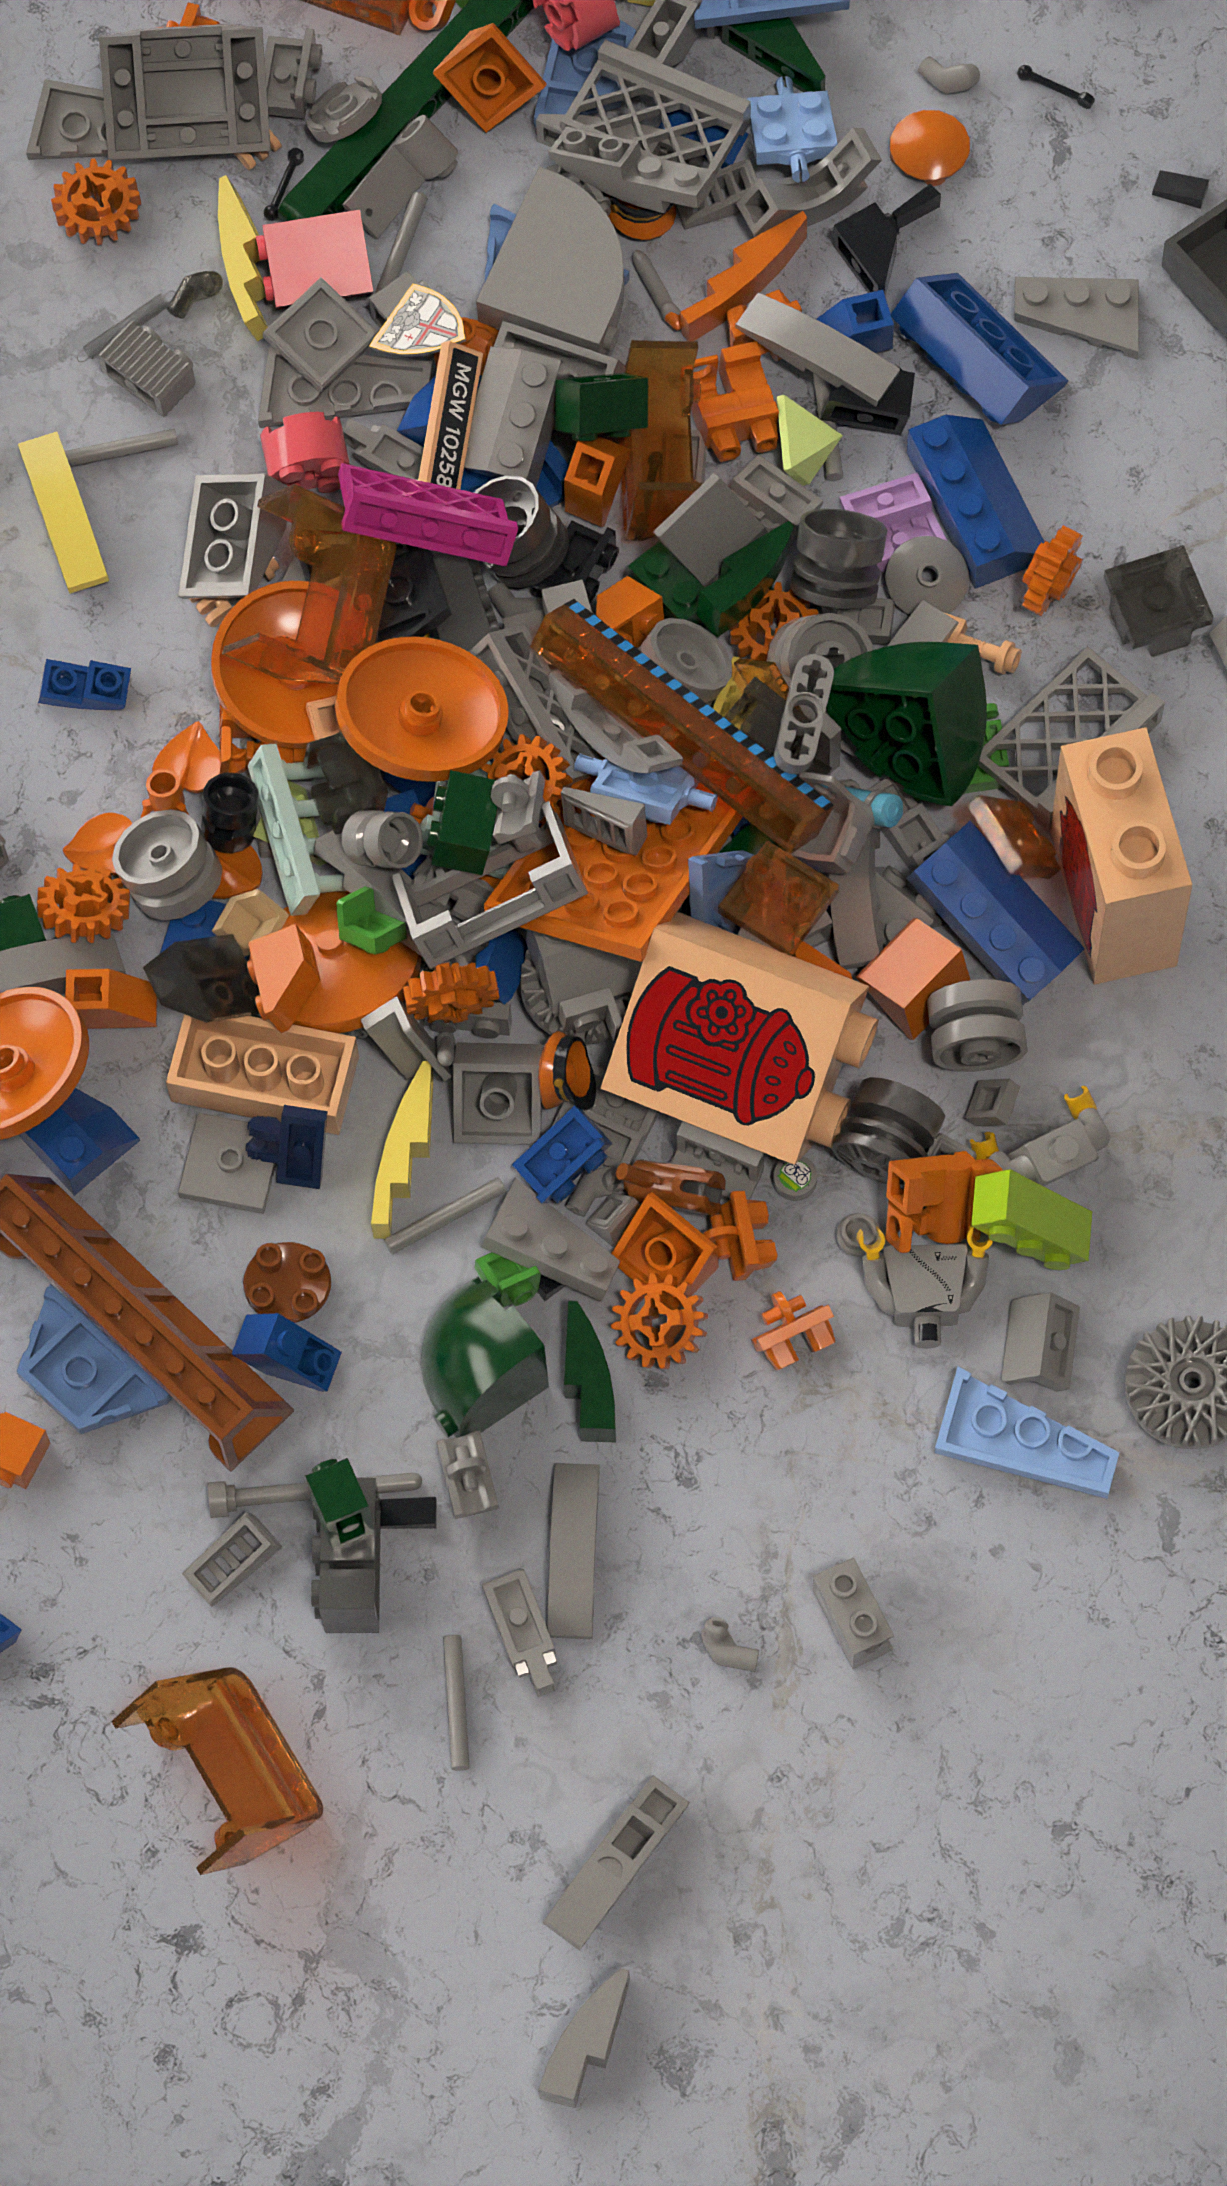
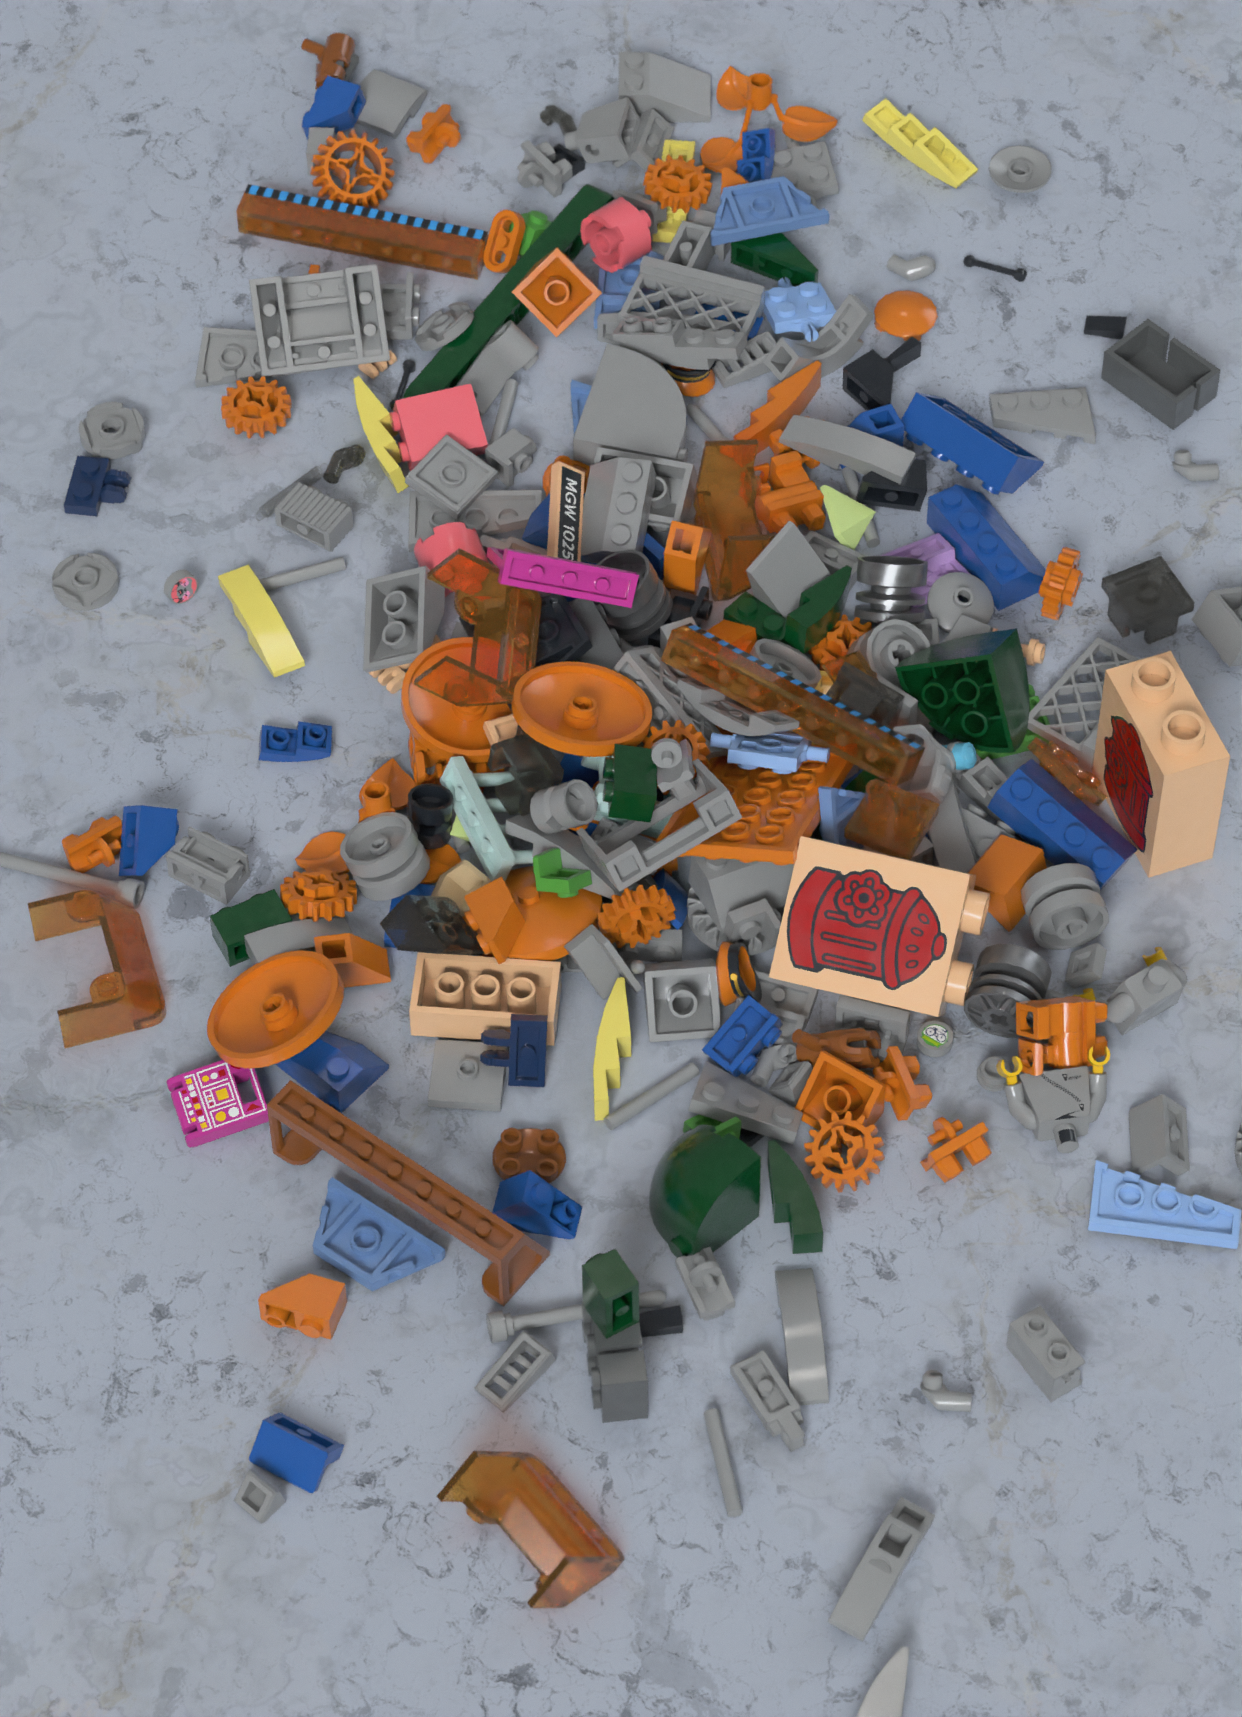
camera: 10 degrees left, 15 degrees down
(420, 325) = (530, 461): shield -> none
(601, 405) = (686, 493): dark green brick -> none
(615, 822) = (761, 764): light grey slope -> none
(816, 701) = (880, 693): light grey beam -> none
(1031, 1219) = (1138, 1037): lime brick -> none

